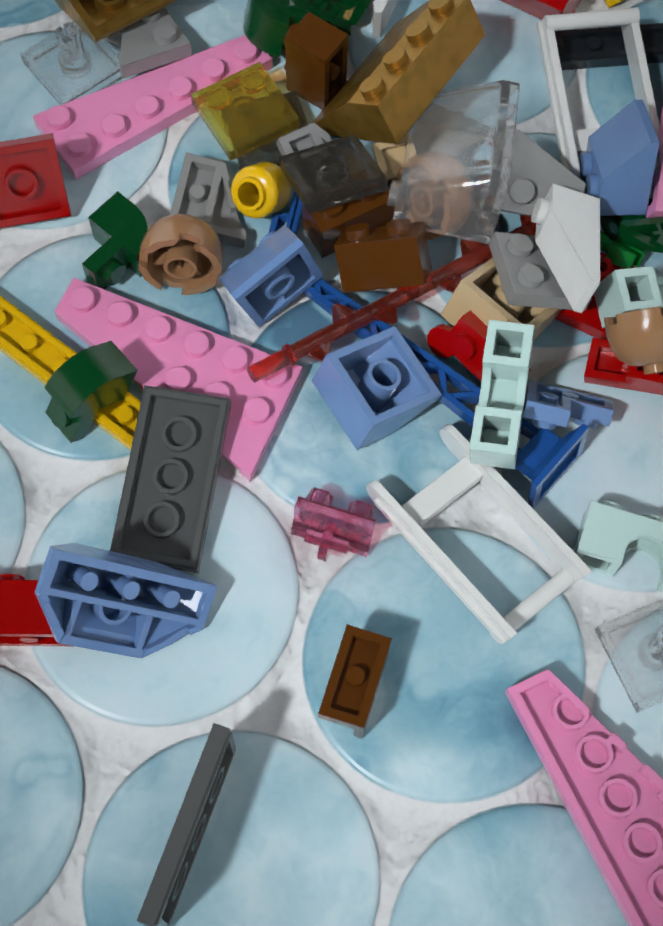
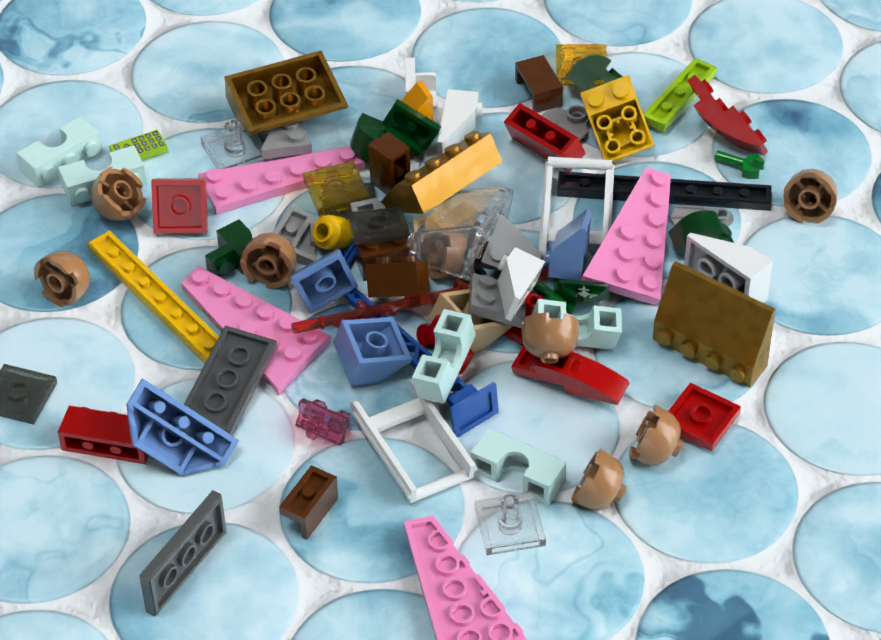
camera: 15 degrees right, 20 degrees down
(85, 384) = (186, 318): dark green brick -> none
(554, 405) = (482, 377): medium blue plate -> none

